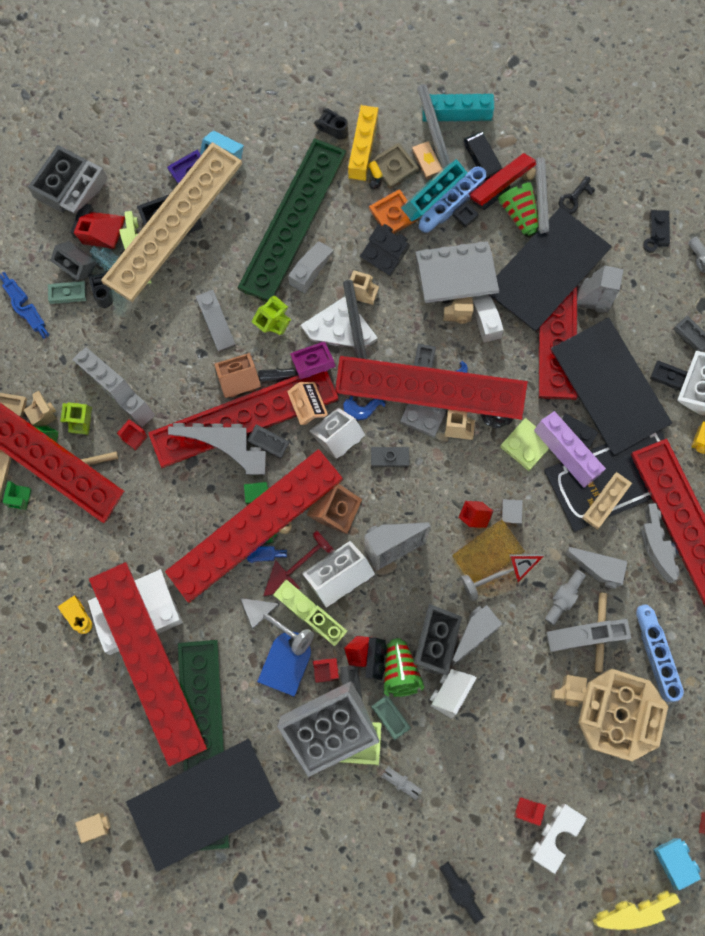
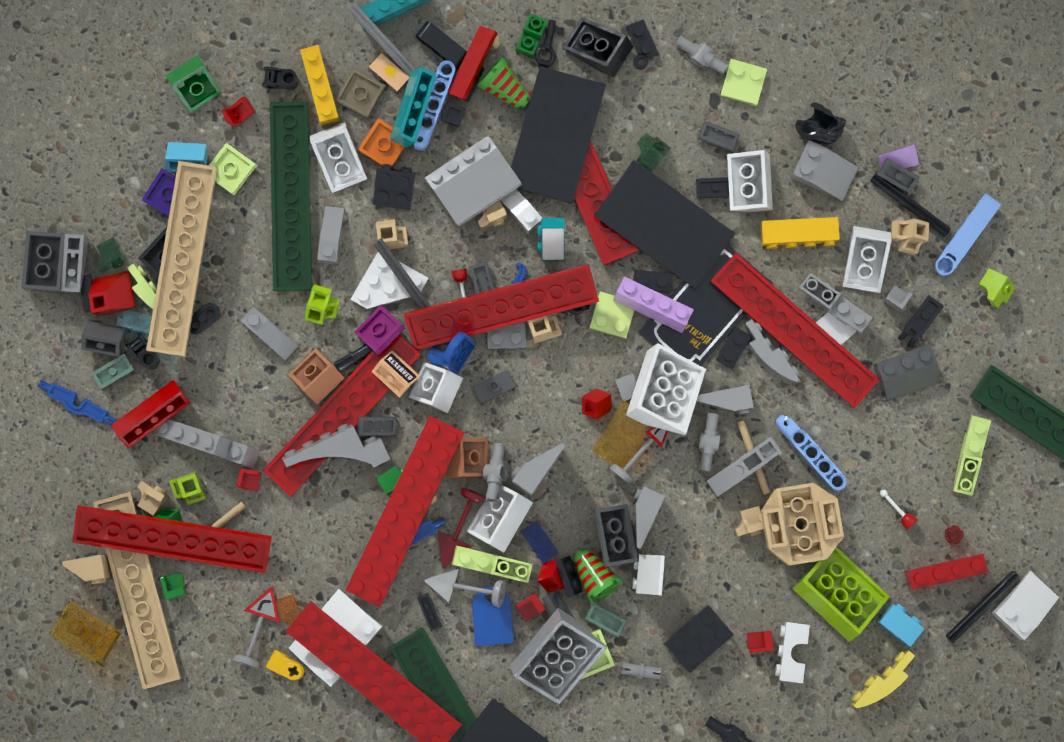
camera: 30 degrees left, 10 degrees up
(78, 339) = (150, 414): none -> red brick
(86, 553) = (264, 608): none -> light grey piece
(105, 562) = (287, 609): none -> clear orange slope
(116, 199) = (110, 255): none -> clear green brick
(166, 282) = (201, 316): none -> black plate
(231, 629) = (429, 611): none -> black piece
(254, 176) = (232, 168): none -> yellowish green plate
(258, 98) = (193, 84): none -> green slope
(284, 135) = (238, 112): none -> red bracket
(349, 206) = (338, 157): none -> white slope
(353, 531) = (495, 472): none -> light grey pin
(364, 614) = (539, 542): none -> clear blue plate
(372, 407) = (458, 352): none -> blue tile
(377, 175) = (349, 112): arm -> none
(405, 349) = (460, 276): none -> red hinge
(471, 778) = (698, 638): none -> black brick
(503, 352) = (552, 239): none -> white brick
(542, 195) = (517, 61): light grey axle -> none
(547, 529) = (666, 390): none -> white slope
(564, 182) = (531, 35): none -> green slope
(600, 289) = (613, 138): light grey wedge -> none
(606, 500) = (707, 335): tan plate -> none
(620, 215) = (598, 46): none -> black slope
(626, 523) = (733, 347): none -> black plate
(627, 320) = (651, 151): none -> clear green brick
(630, 804) = (841, 594): none -> lime slope

